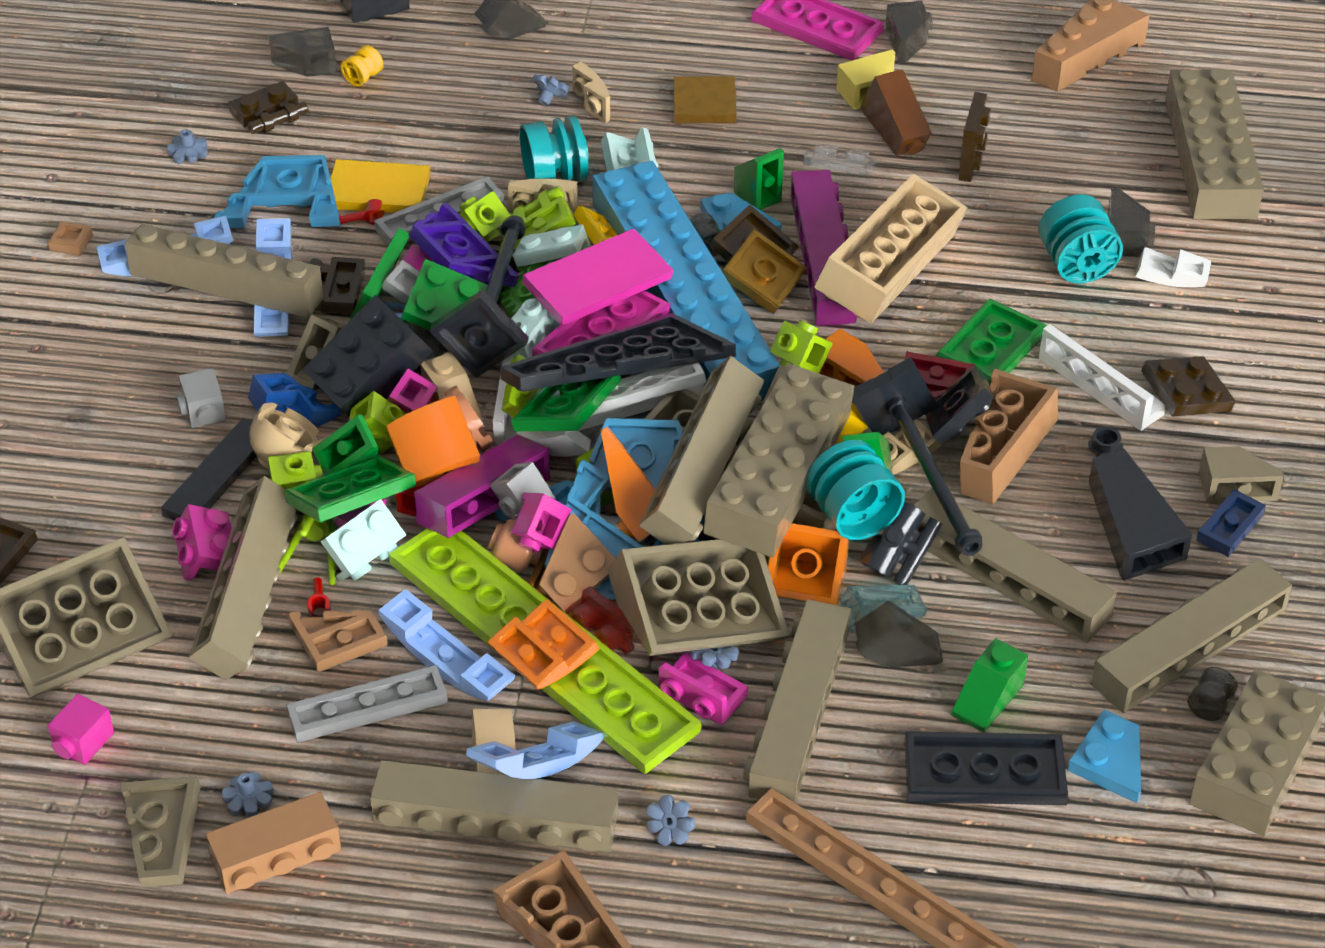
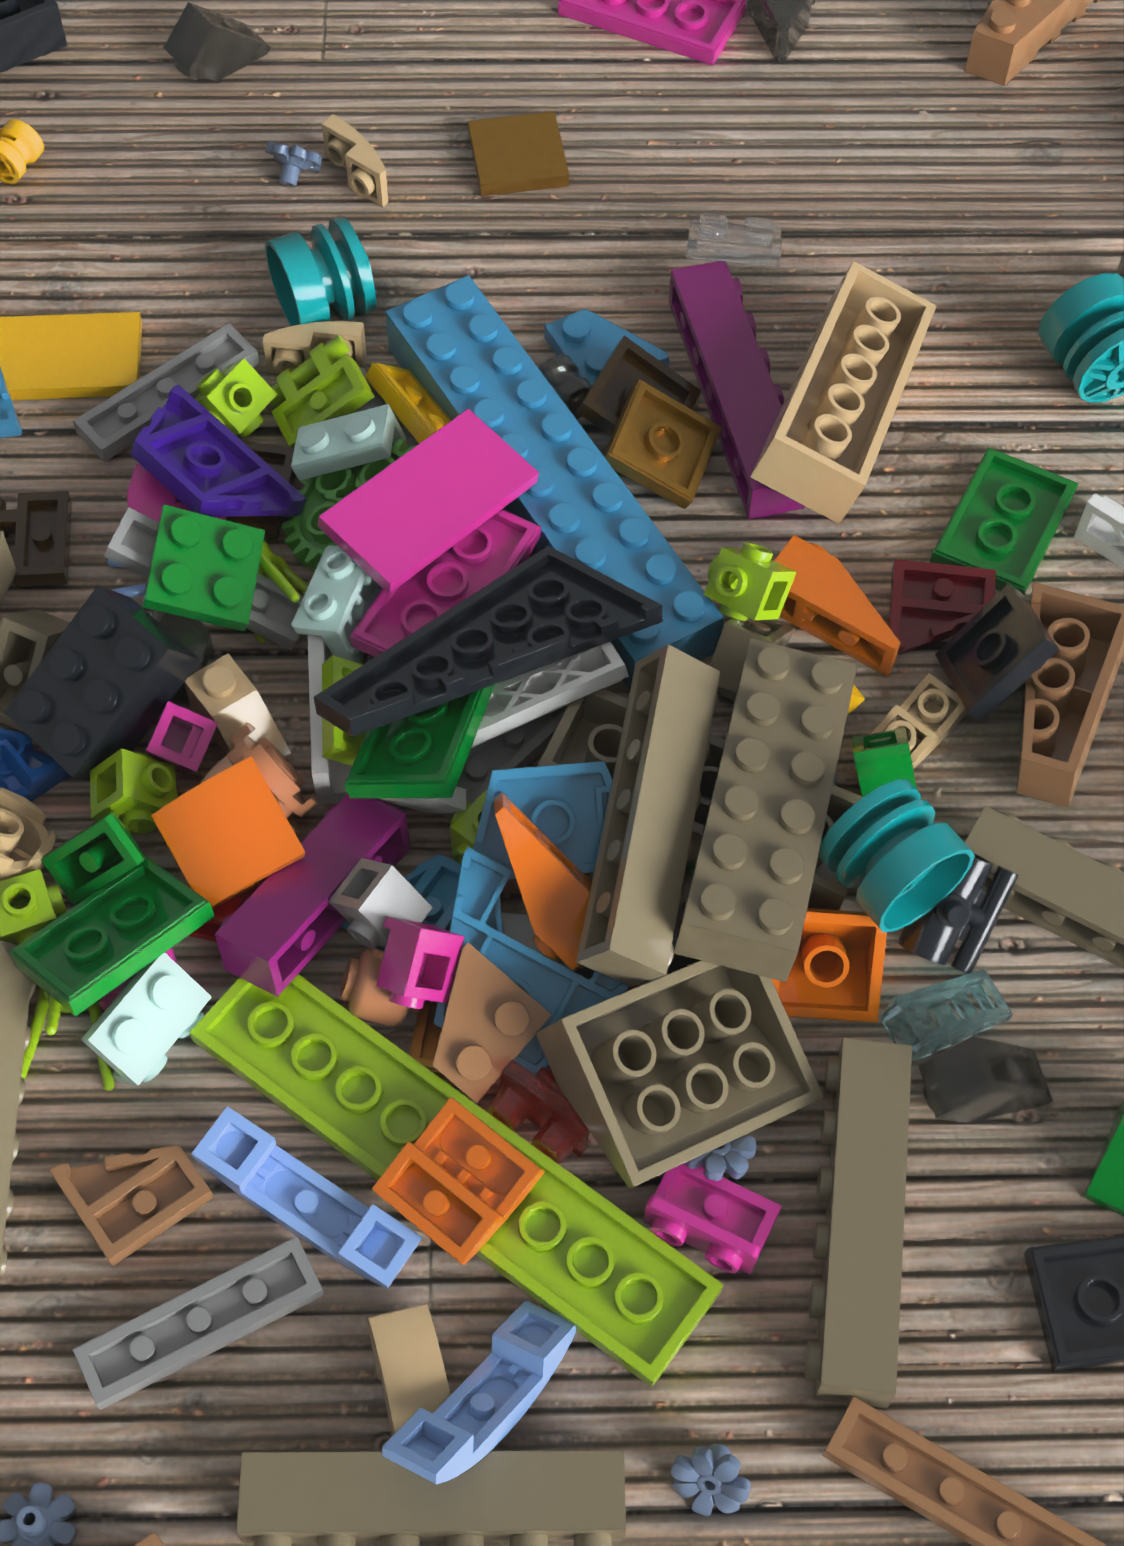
camera: 10 degrees left, 15 degrees up
(318, 599) = (91, 1122): red hand -> none
(370, 214) = (66, 406): red hand -> none
(383, 270) = (95, 535): green tile -> none
(477, 328) = (265, 621): black tile -> none
(625, 152) = (426, 261): light aqua bracket -> none
(760, 179) = (626, 284): green slope -> none
(857, 75) = (739, 97): light yellow slope -> none
(894, 403) = (903, 661): black tile -> none
(896, 113) = (798, 153): reddish brown slope -> none
(974, 137) = (918, 182): dark brown plate -> none

